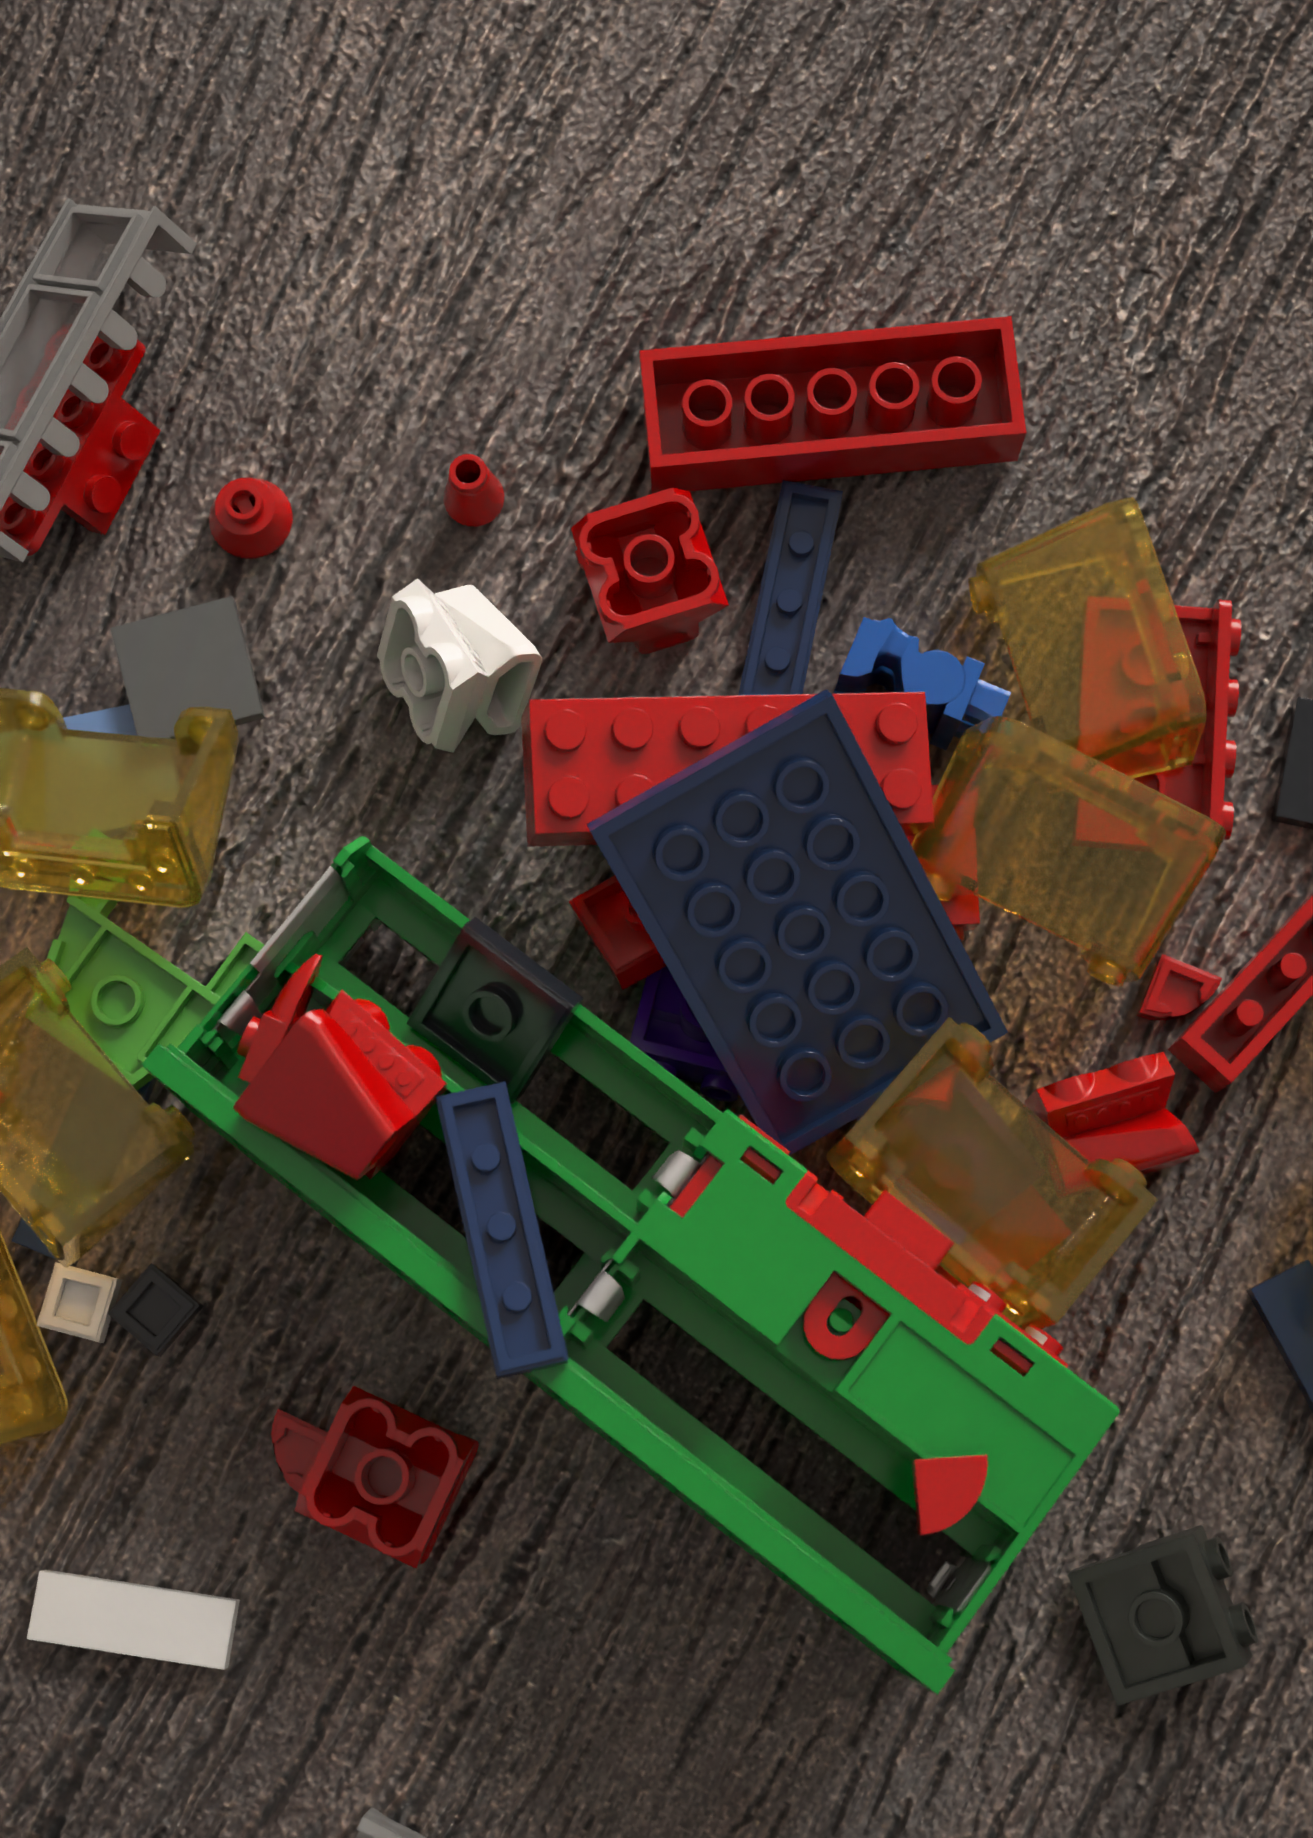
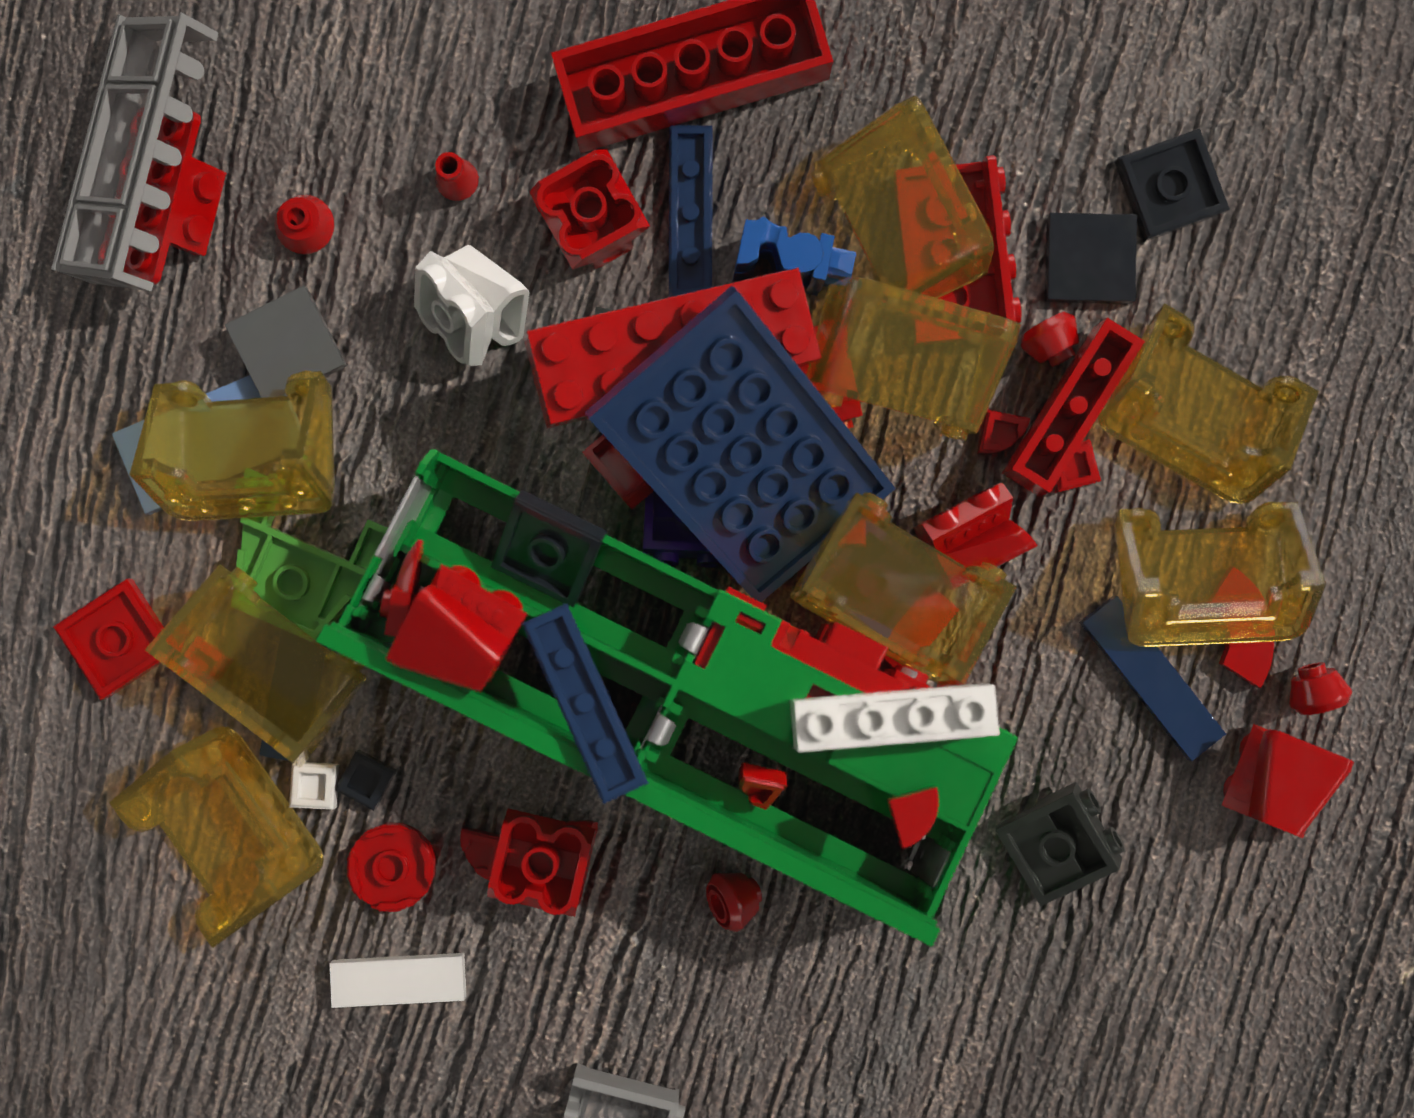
camera: 20 degrees left, 10 degrees up
(163, 1446) = (391, 866): none -> red tile
(655, 1597) = (733, 899): none -> red cone
(731, 1410) = (761, 784): none -> red tile
(943, 1335) = (894, 717): none -> white brick
(1271, 871) = (1052, 339): none -> red cone
(1280, 1065) = (1081, 469): none -> red tile

